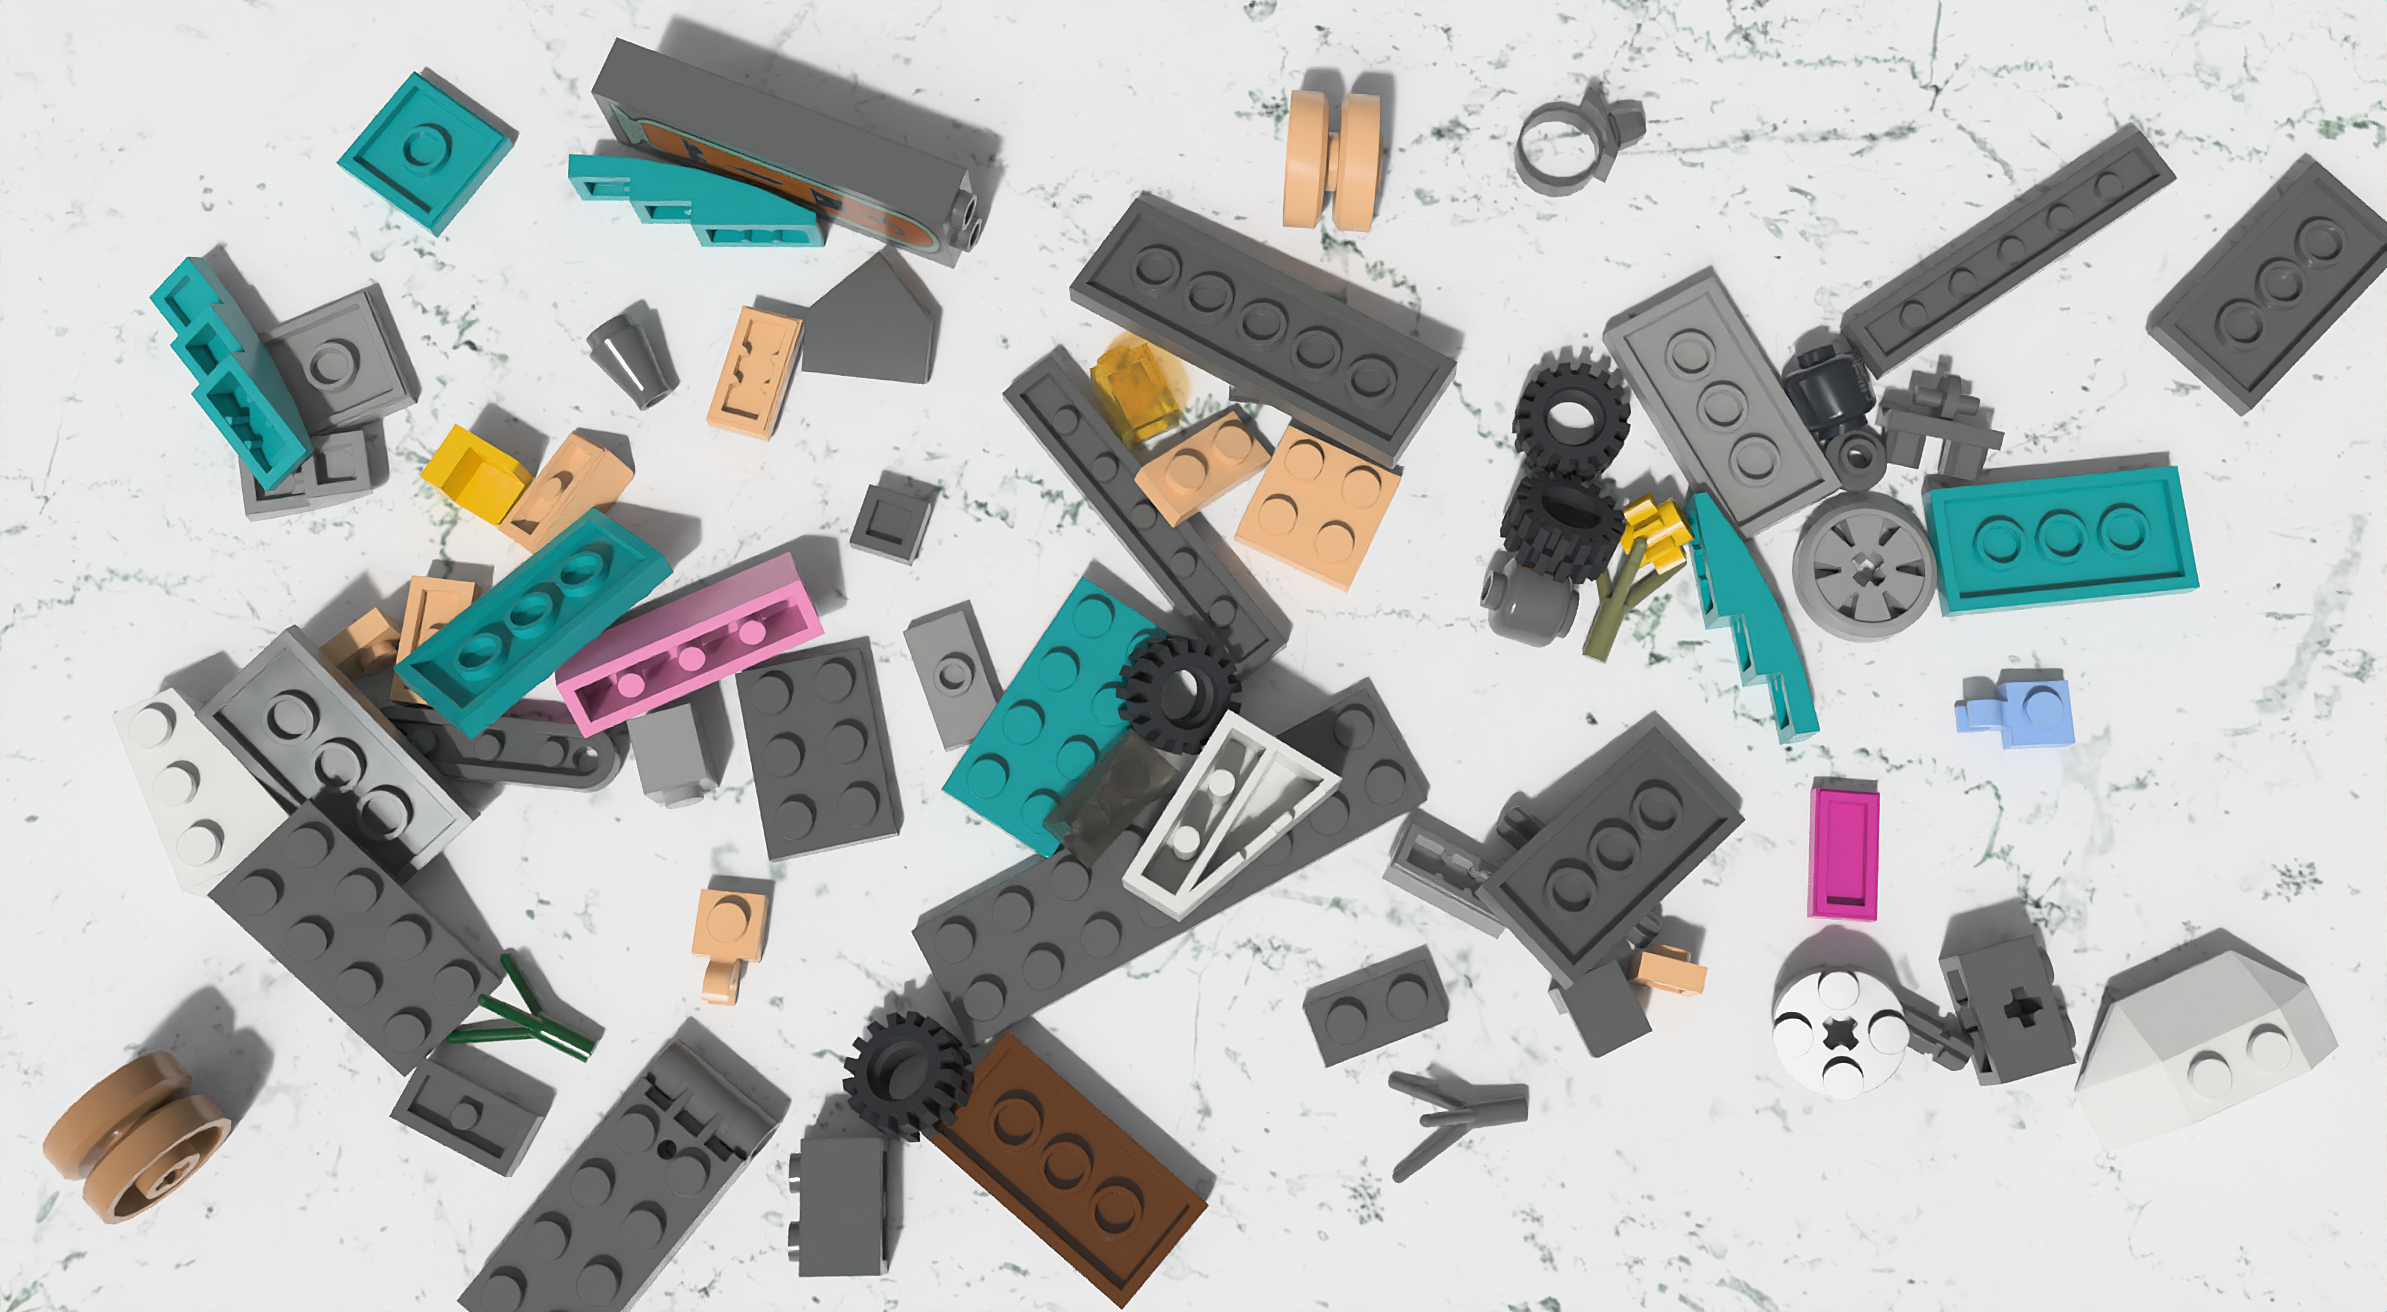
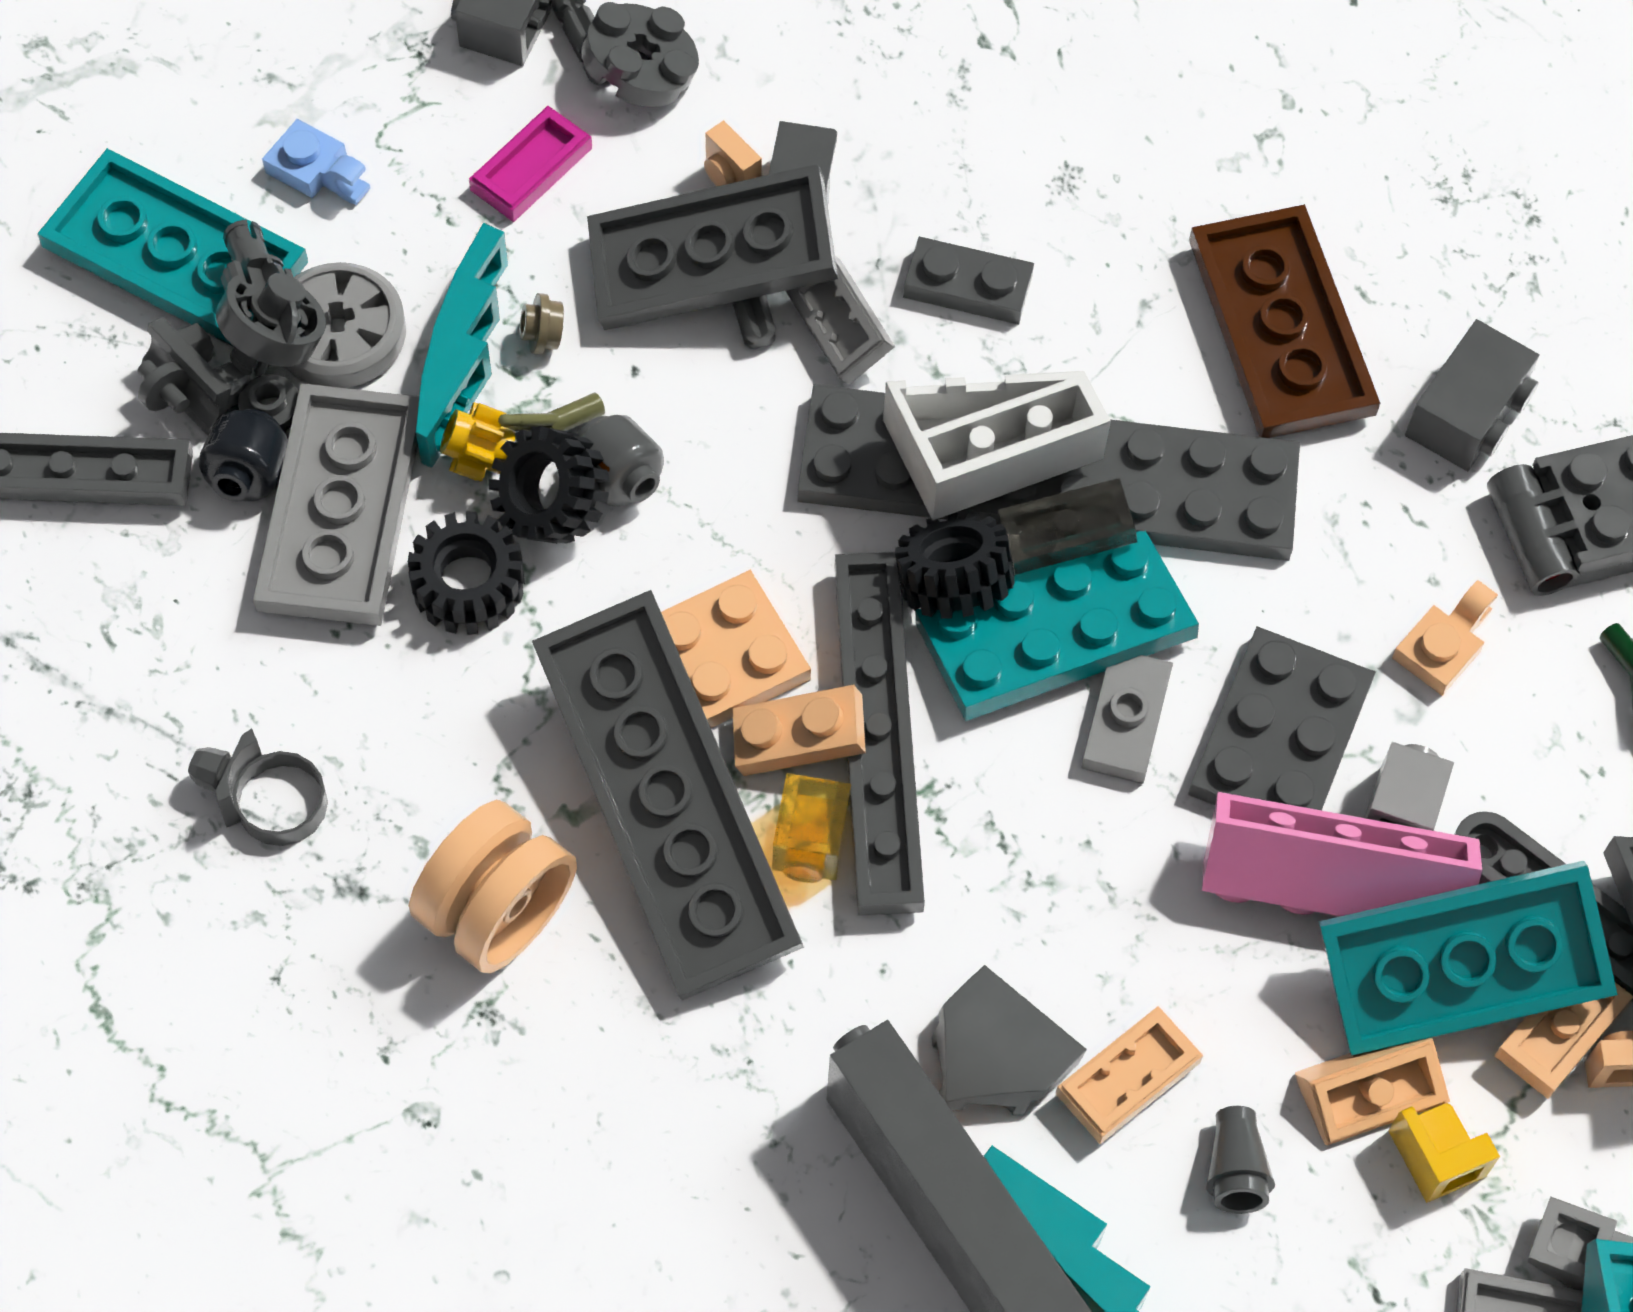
camera: 145 degrees left, 15 degrees down
(882, 1056) = (1400, 430): black tyre -> none
(890, 525) = (1097, 864): dark grey plate -> none
(1461, 1114) = (951, 172): dark grey plant -> none
(1698, 690) = (542, 323): none -> dark tan plate
(1918, 510) = (278, 305): none -> dark grey pin

